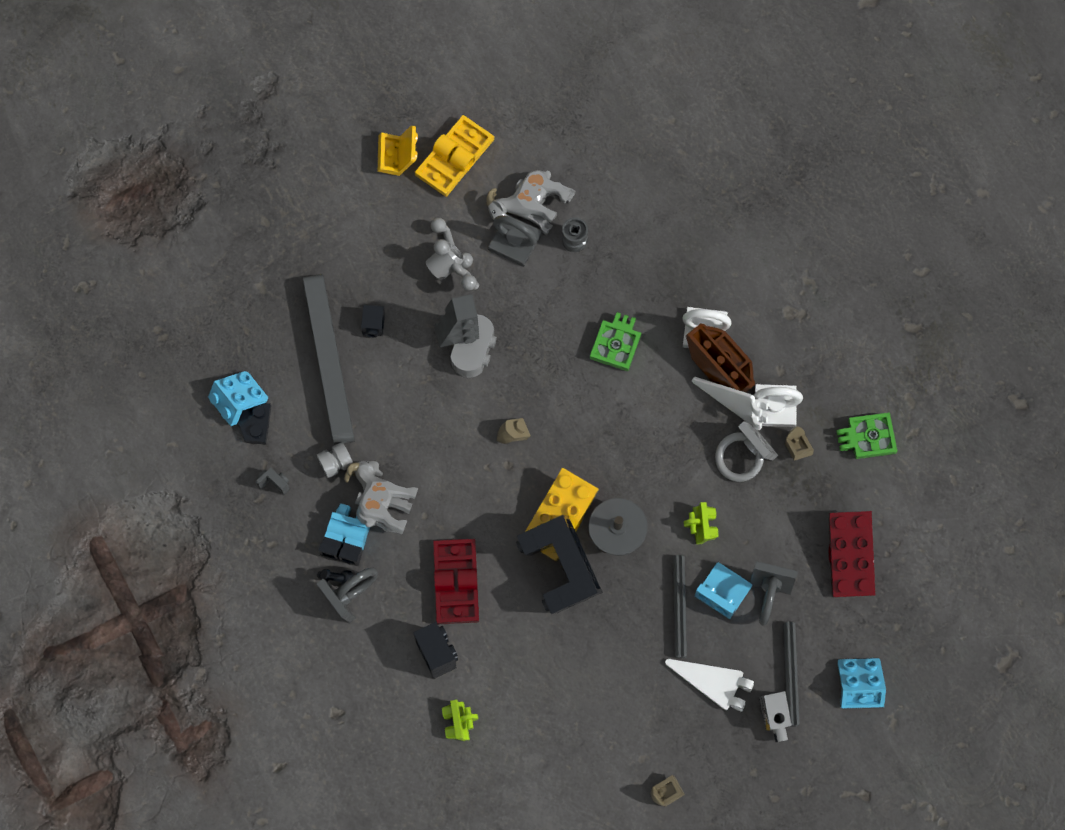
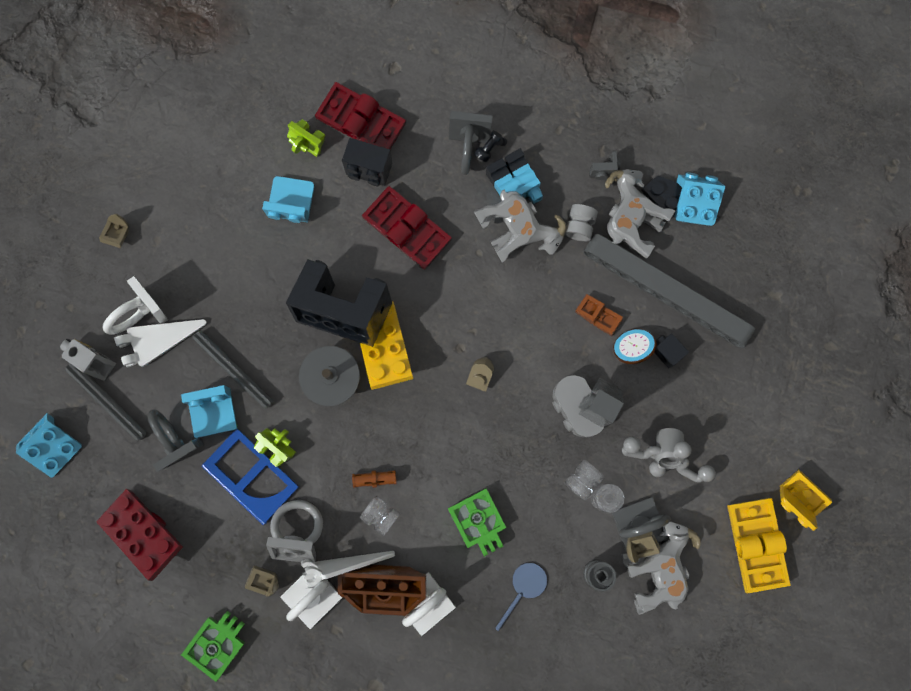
camera: 130 degrees right, 10 degrees up
(292, 431) = (633, 211): none -> light grey animal
(391, 390) = (599, 315): none -> dark orange slope
(393, 345) = (634, 346): none -> piece
(403, 695) = (360, 117): none -> dark red plate
(517, 685) = (289, 200): none -> medium azure bracket
(518, 273) = (607, 498): none -> clear wheel
(521, 298) = (584, 480): none -> clear wheel
(531, 221) = (642, 546): none -> dark tan plate
(624, 278) = (528, 582): none -> sand blue piece
(657, 436) = (374, 479): none -> dark orange pin
(677, 405) = (379, 515): none -> clear wheel
(700, 708) = (144, 304): none -> white tile
(754, 496) = (260, 508): none -> blue window

